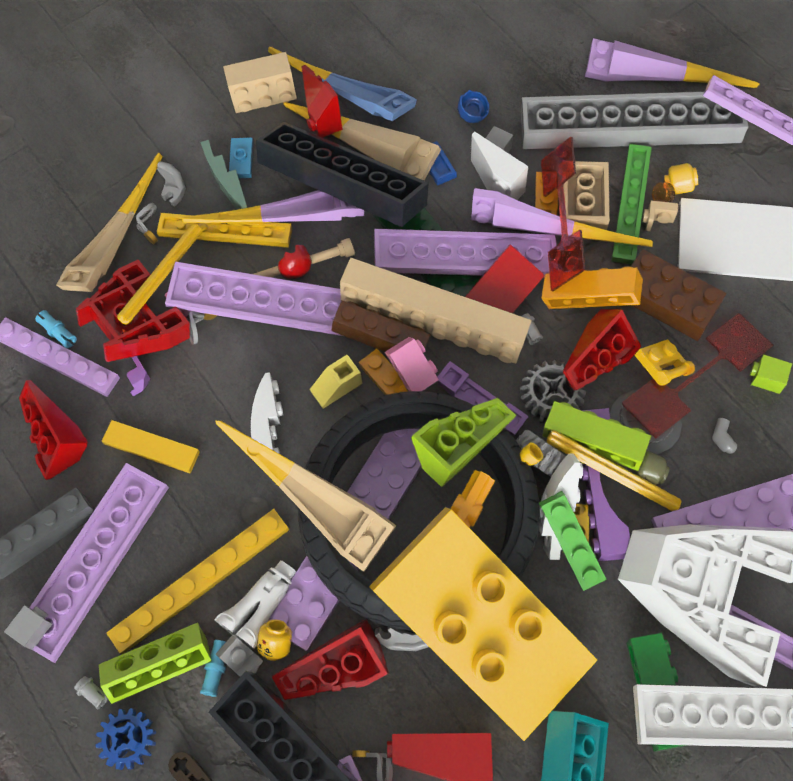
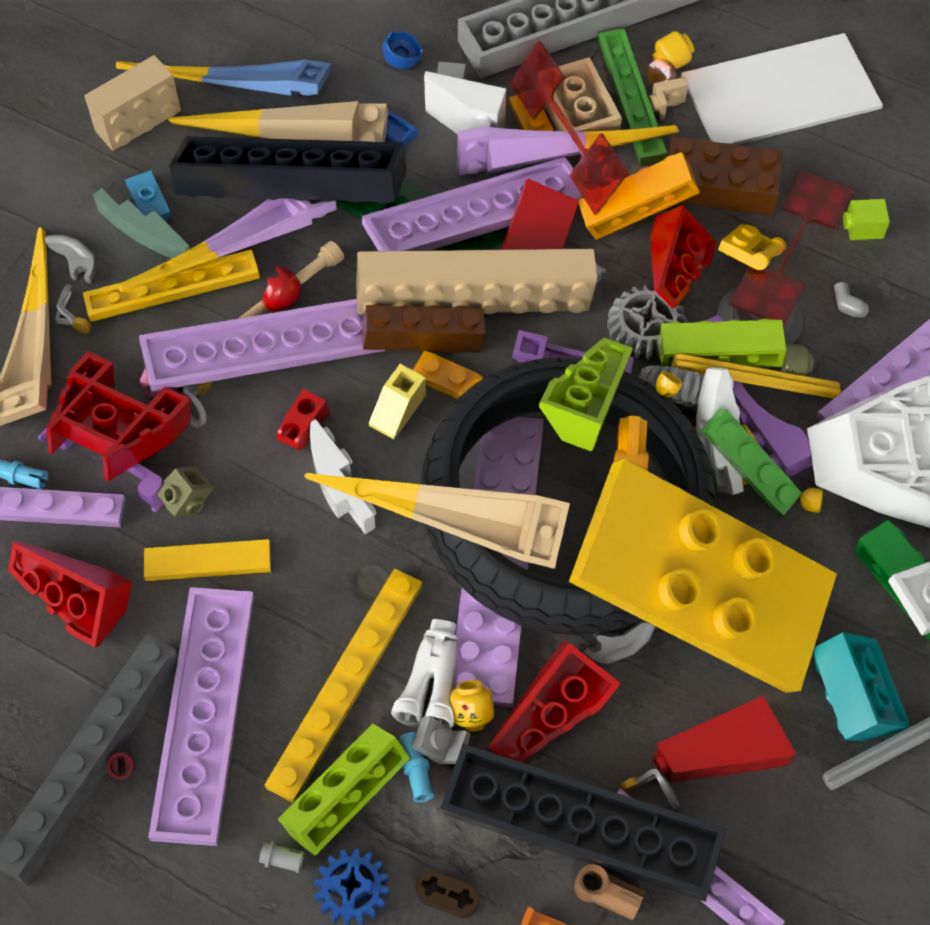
camera: 30 degrees left, 5 degrees down
(15, 574) = (113, 765): none -> dark red hinge
(28, 626) = (170, 812): light grey brick -> none
(156, 390) = (185, 491): none -> olive brick
(159, 274) = (126, 357): yellow axle -> none
(264, 363) = (296, 426): none -> red leg
(321, 104) = (222, 98): red wedge -> none
(412, 365) = (481, 346): bright pink brick -> none
(612, 588) = (812, 499): none -> yellow hinge

